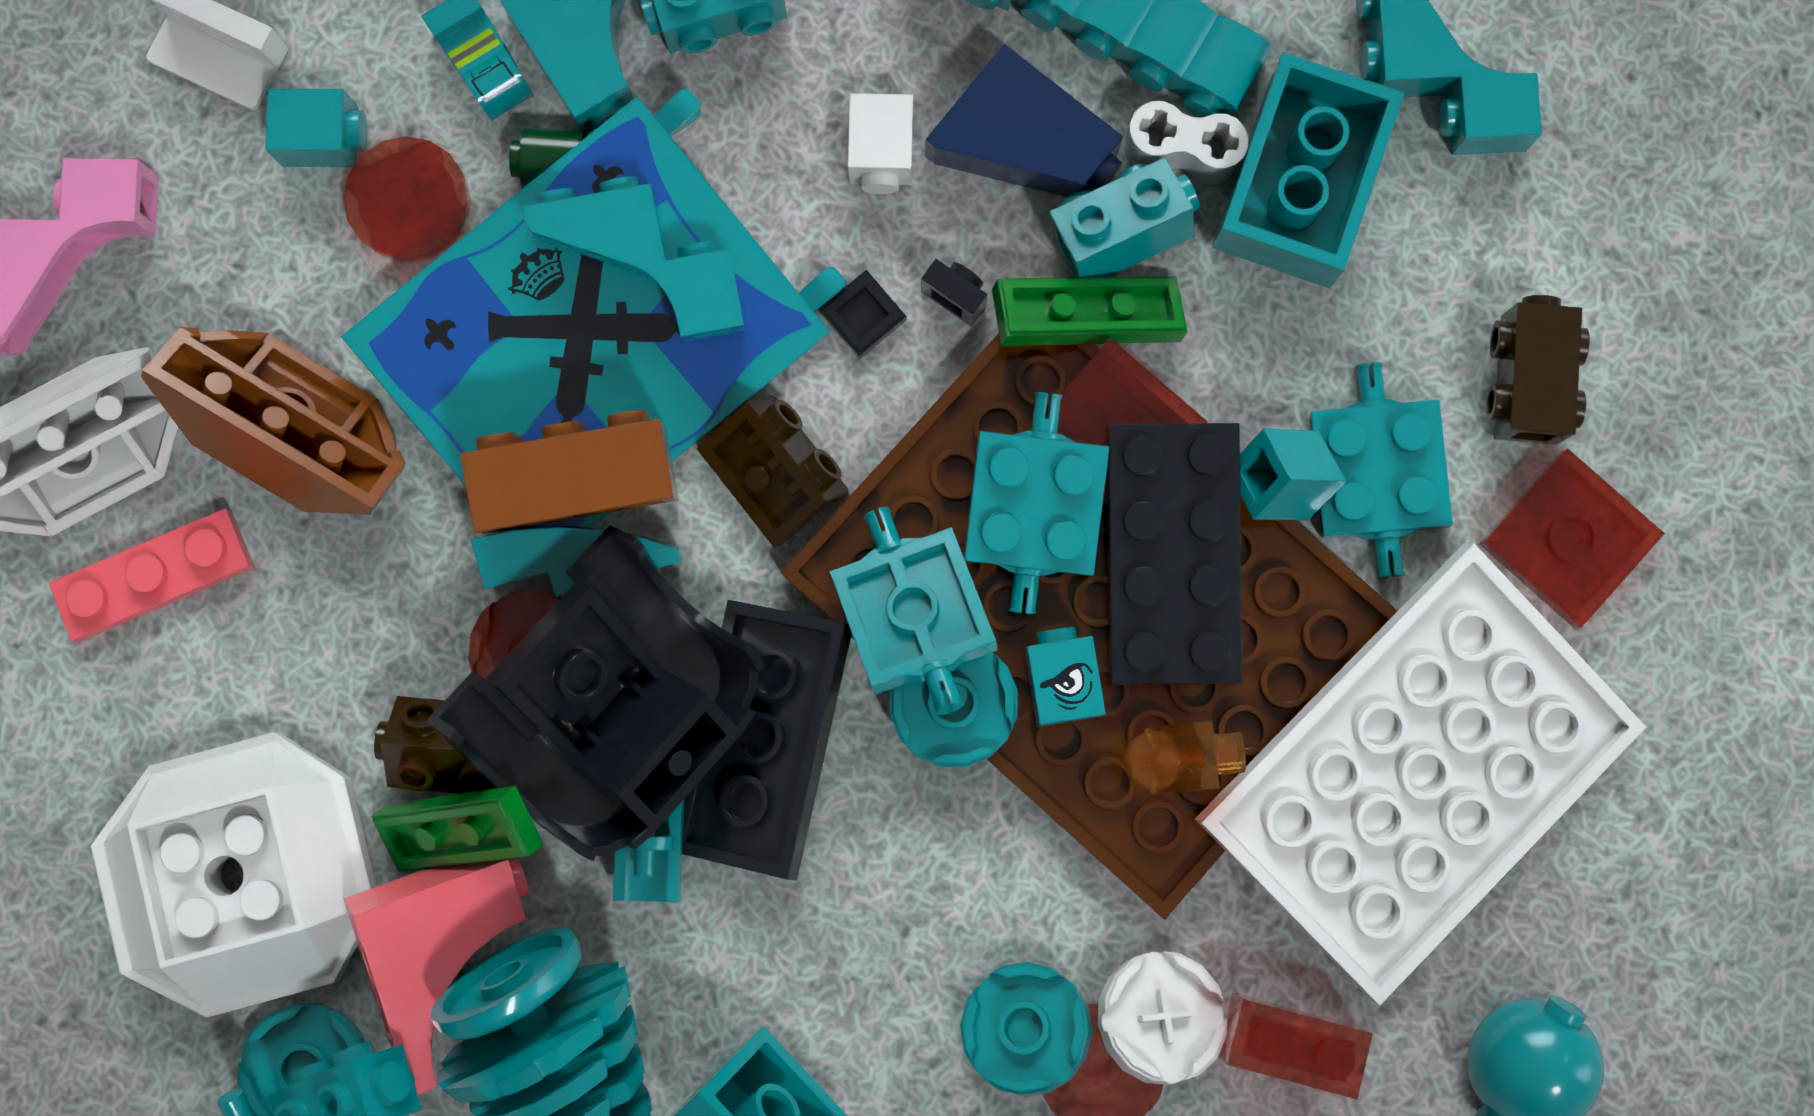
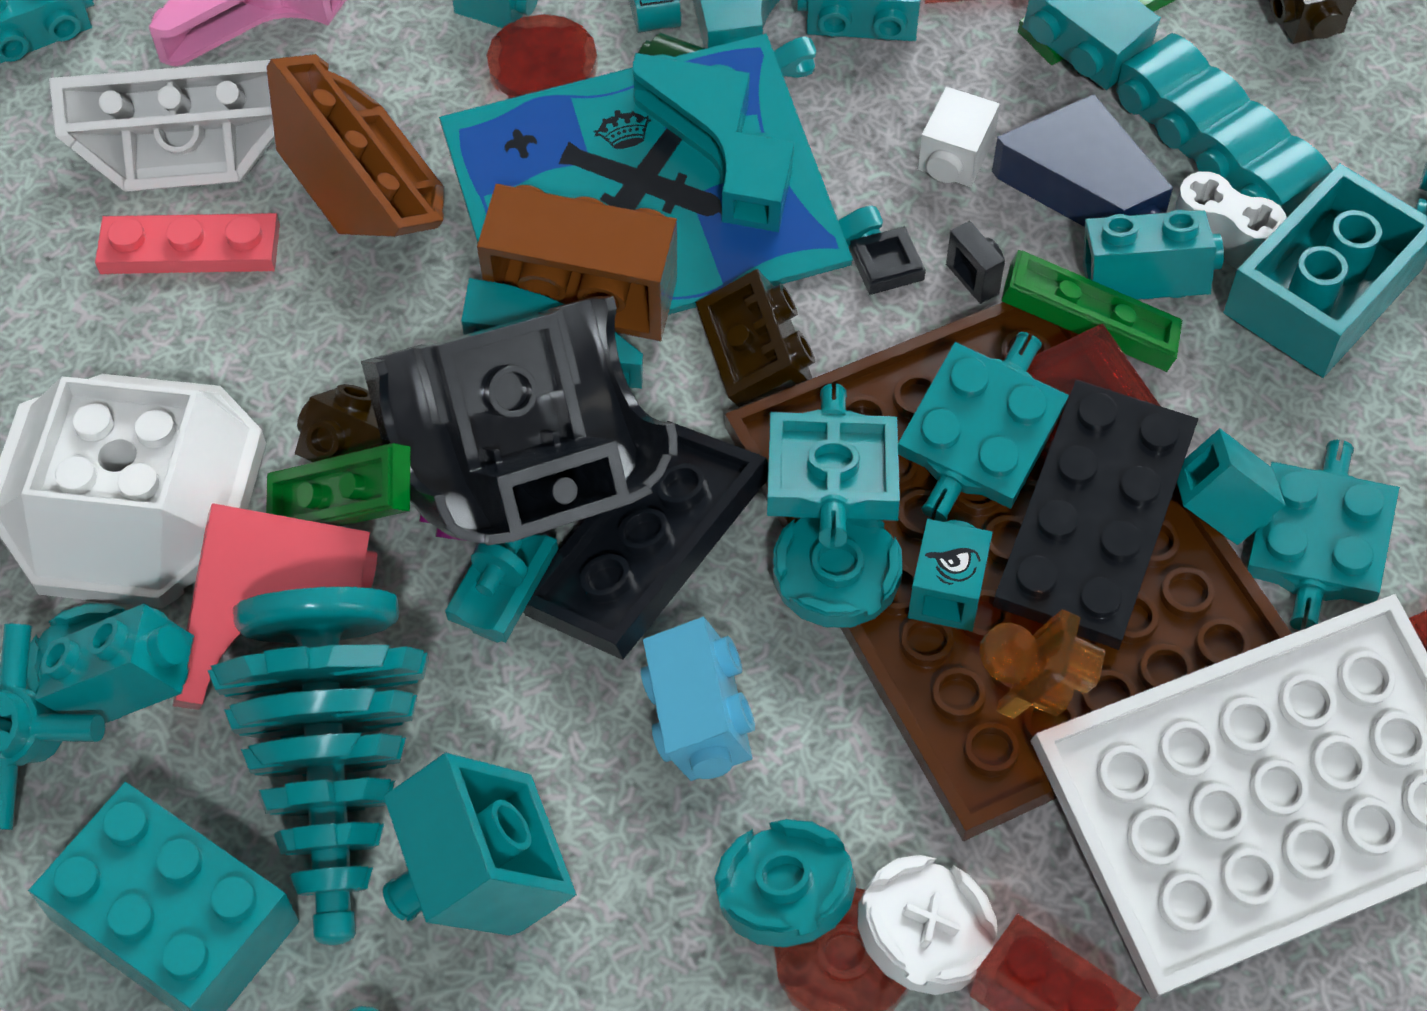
camera: 20 degrees right, 25 degrees down
(881, 893) = (697, 700): none -> medium azure brick

